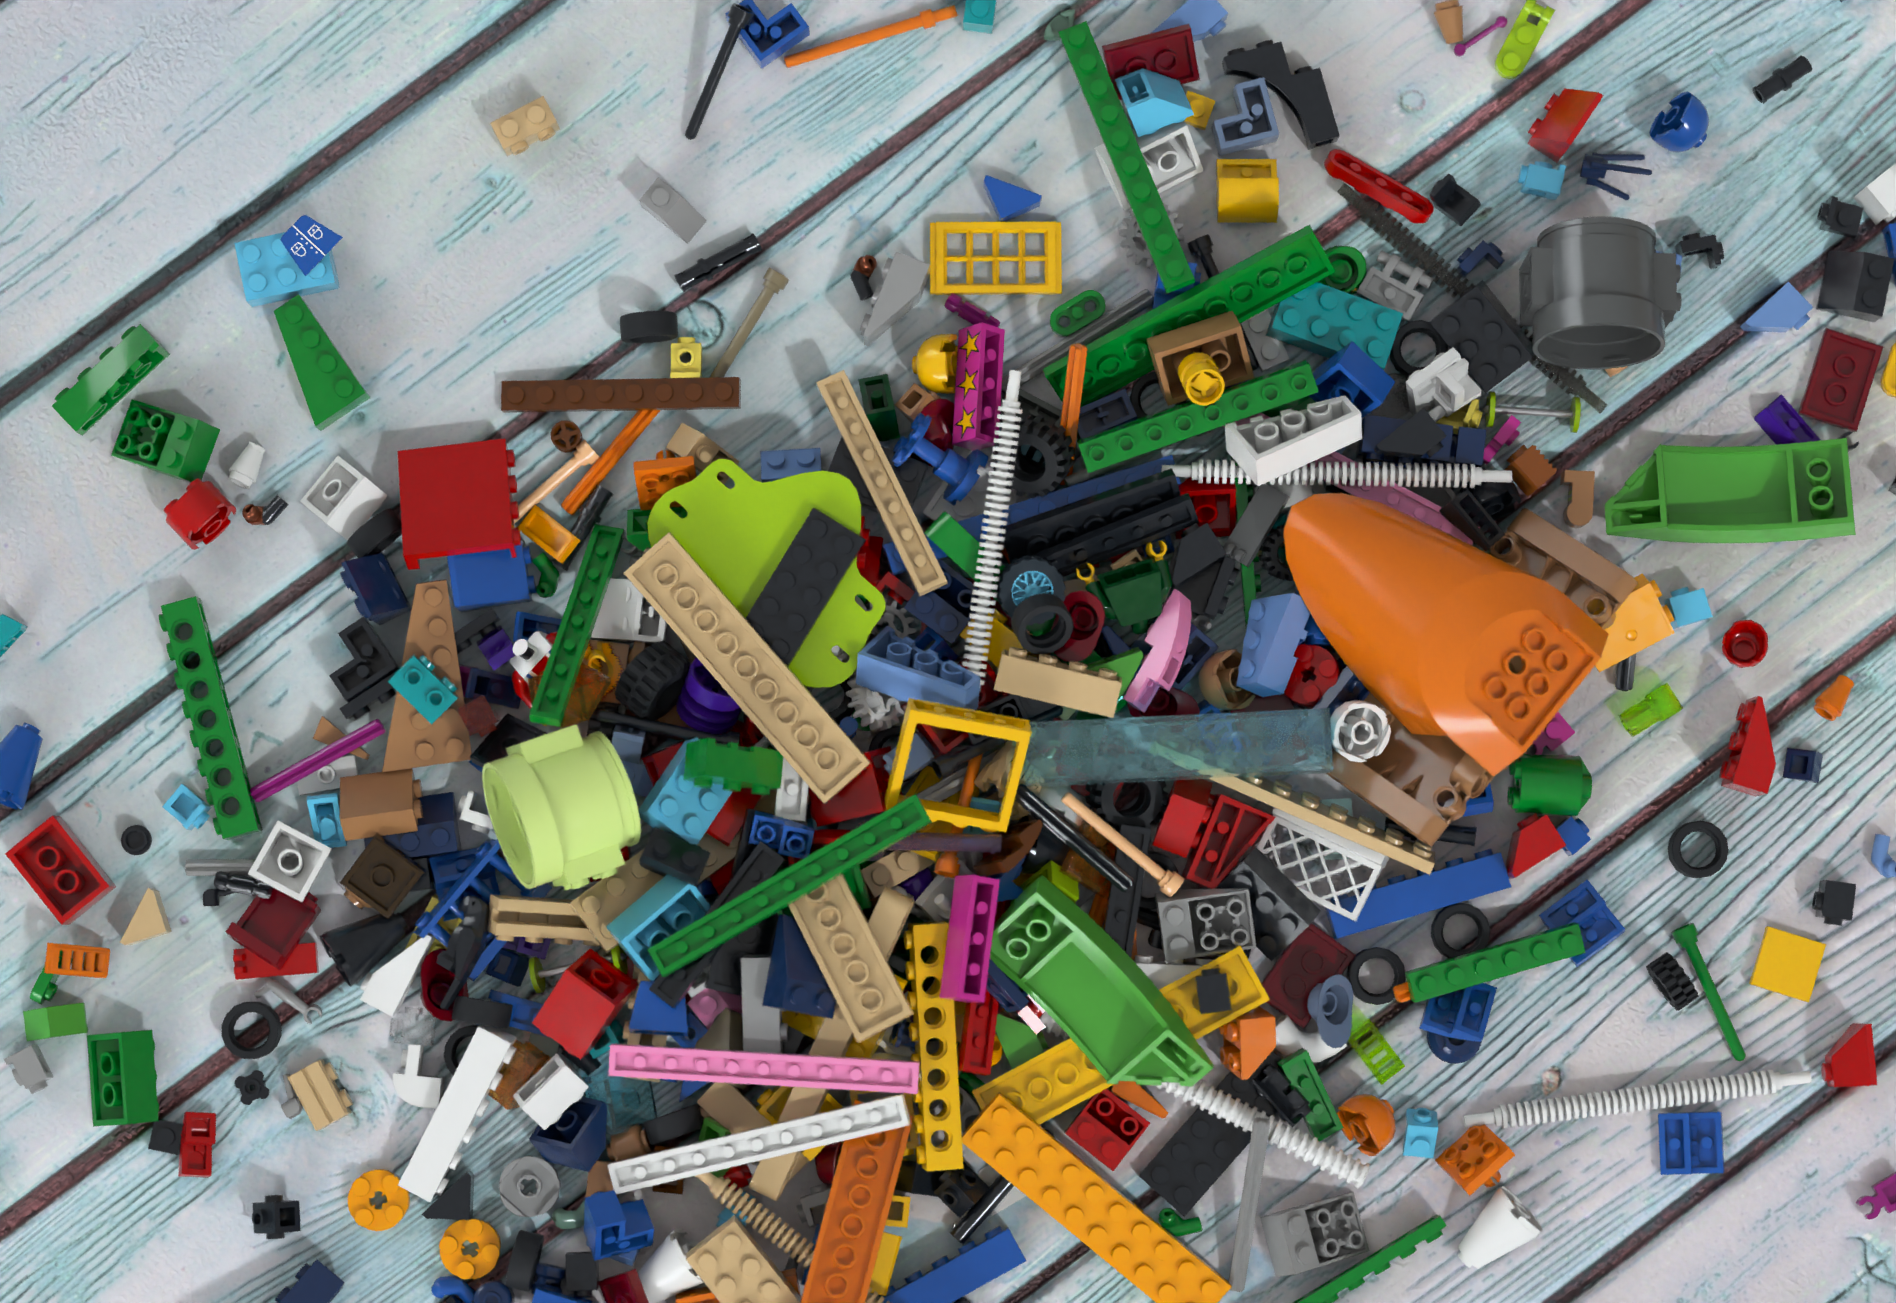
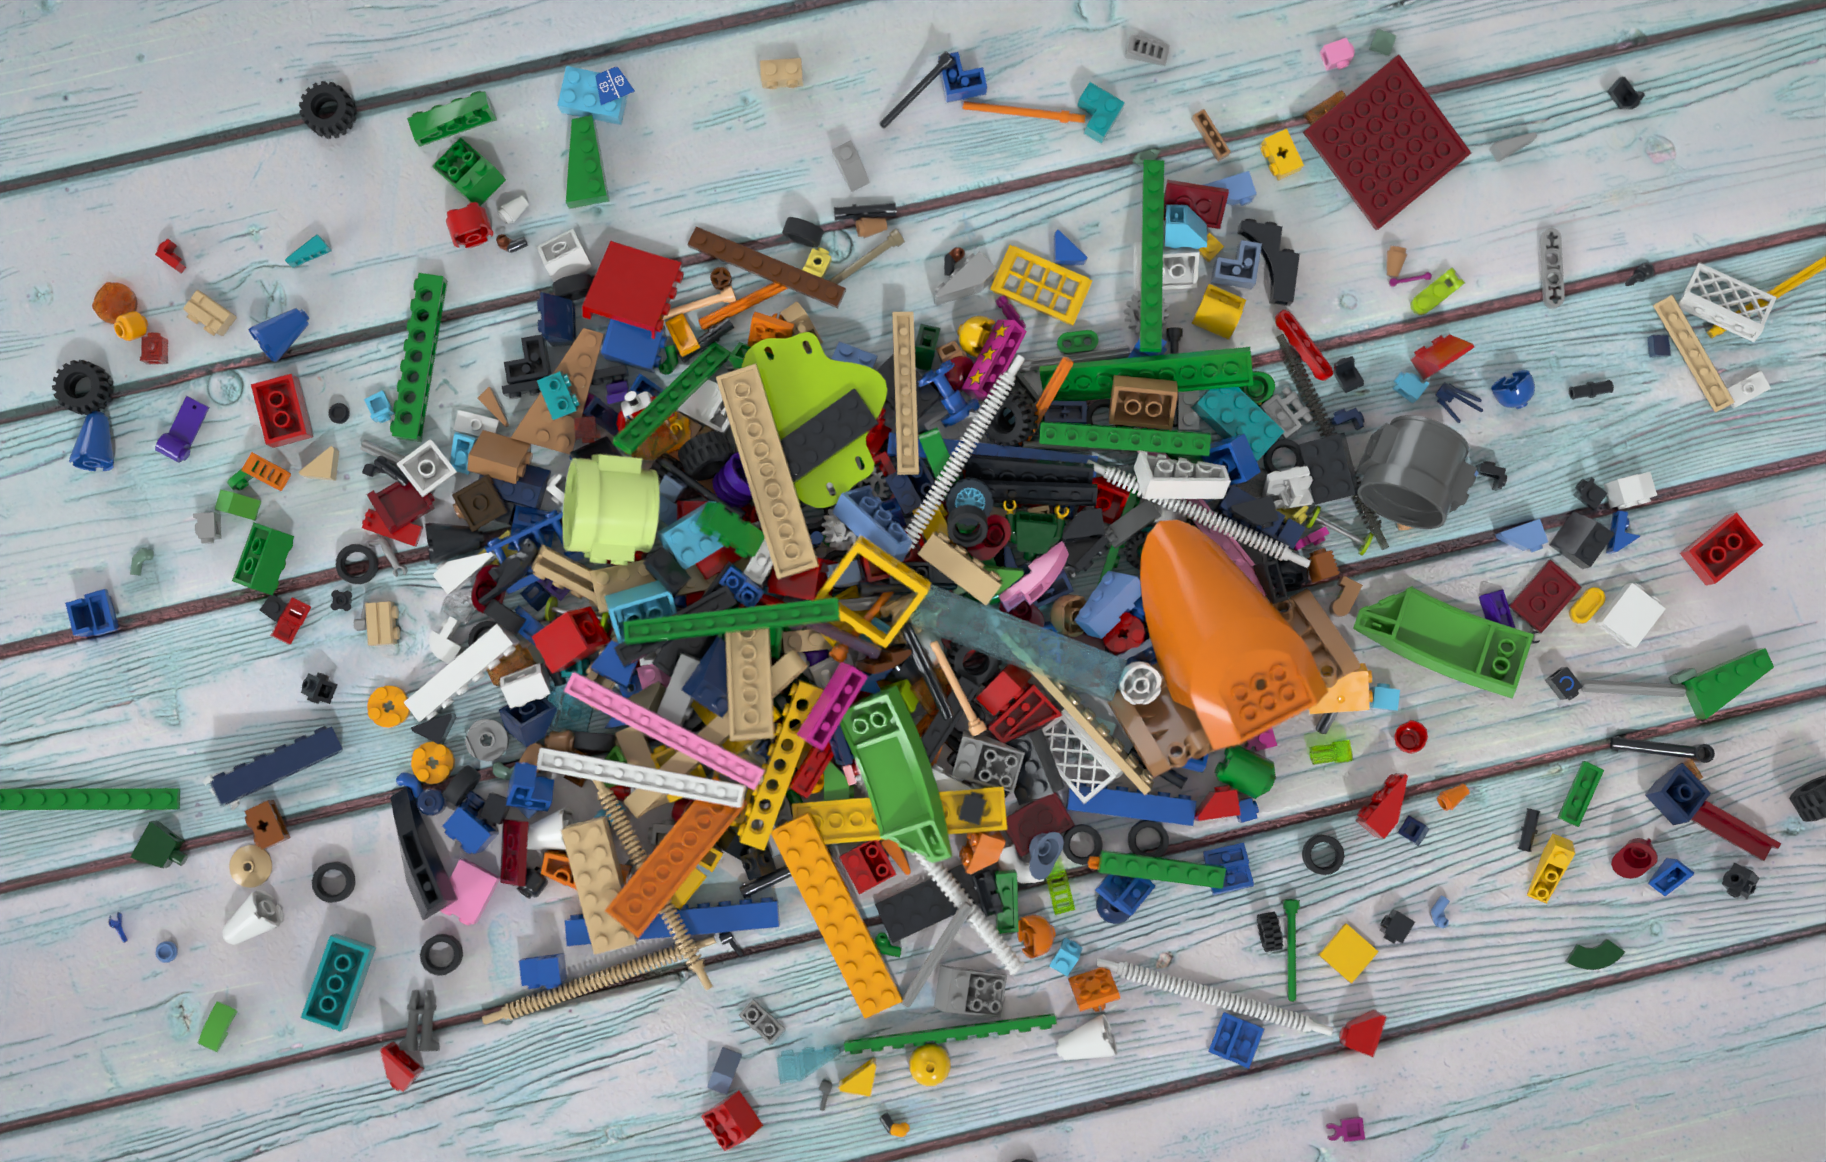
camera: 20 degrees right, 0 degrees up
(317, 760) = (473, 412): magenta axle -> none
(734, 280) = (870, 226): none -> medium nougat cone
(1201, 378) = (1137, 414): yellow wheel -> none

